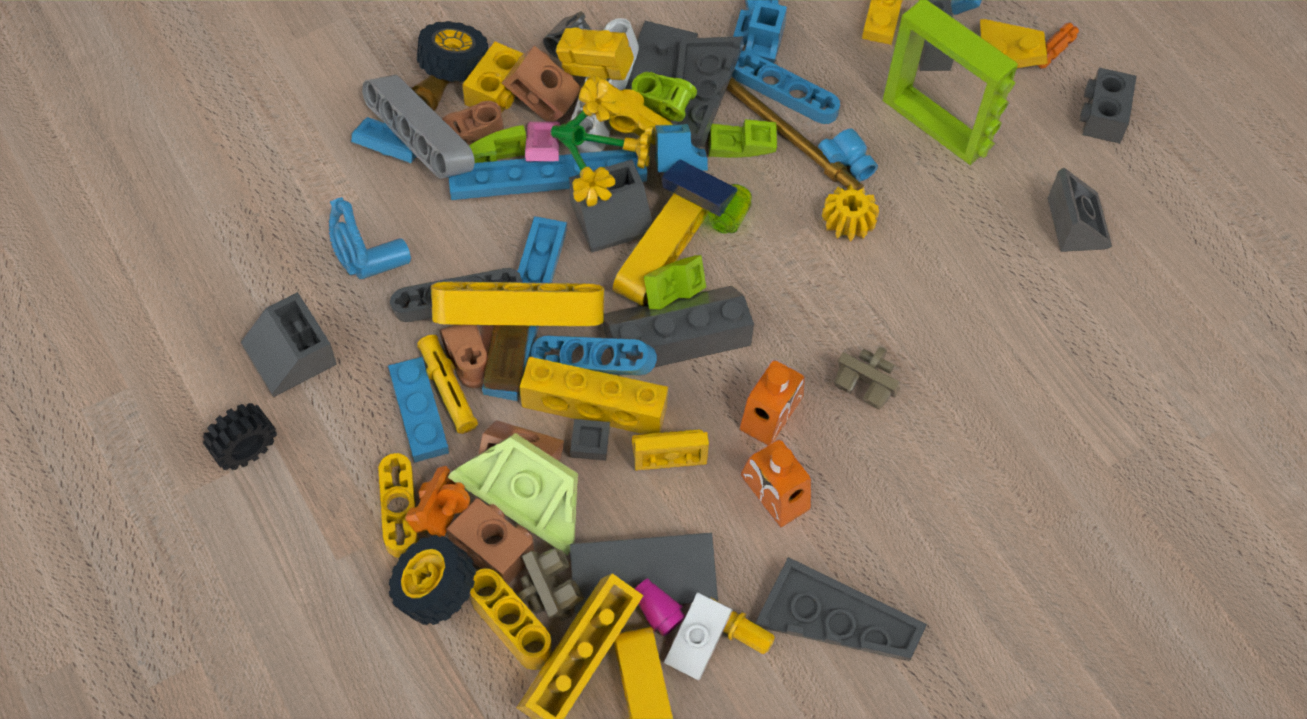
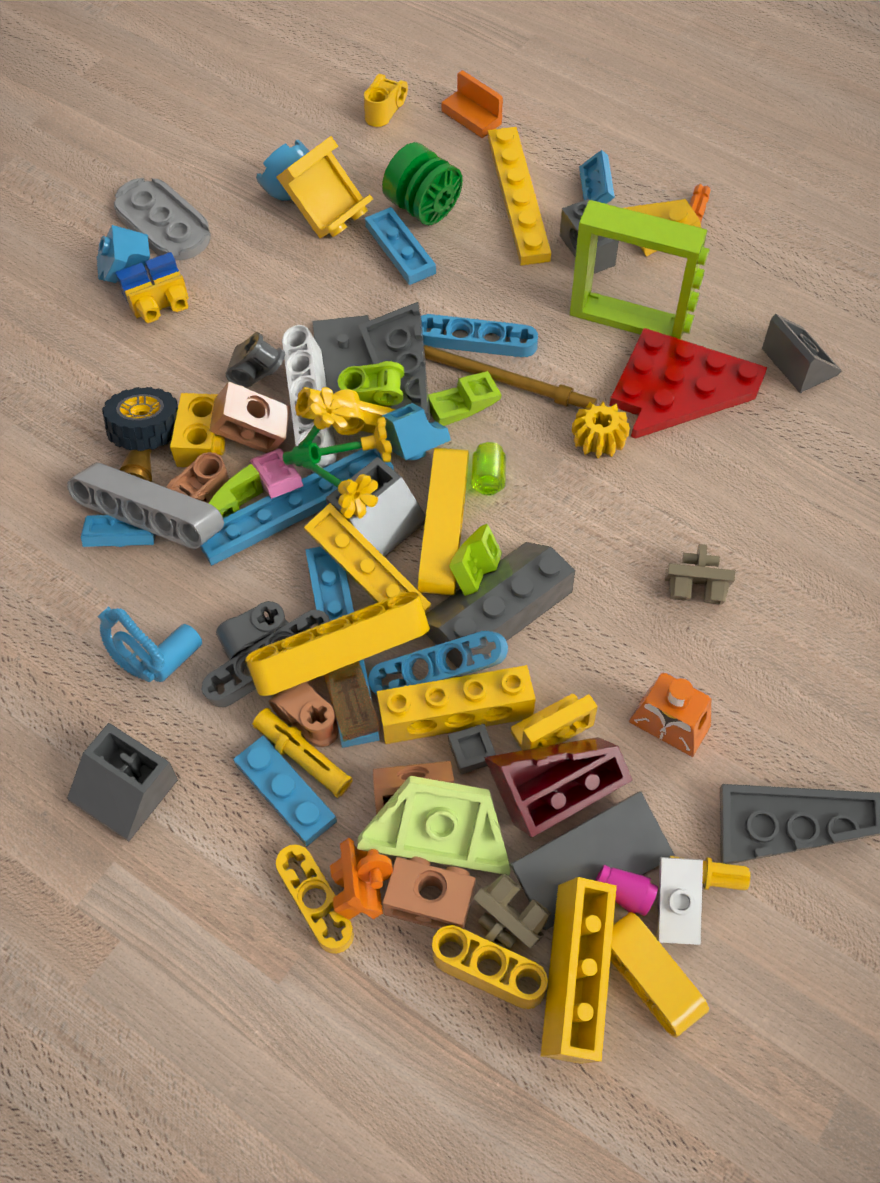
camera: 20 degrees left, 0 degrees up
(239, 436) = (118, 900): black tyre -> none
(432, 580) = (402, 983): black wheel -> none
(454, 262) = (250, 628): none -> dark grey piece
(575, 241) = (358, 556): none -> yellow plate
(595, 52) = (290, 367): yellow brick -> none
(644, 492) = (556, 780): none -> dark red wedge
(698, 187) = (454, 459): dark blue slope -> none
(762, 29) = (430, 287): dark azure brick -> none
(776, 393) = (628, 631): orange torso -> none
(851, 151) = (570, 371): dark azure piece -> none
(951, 198) = (681, 381): none -> red wing
(1108, 105) = (773, 245): dark grey brick -> none

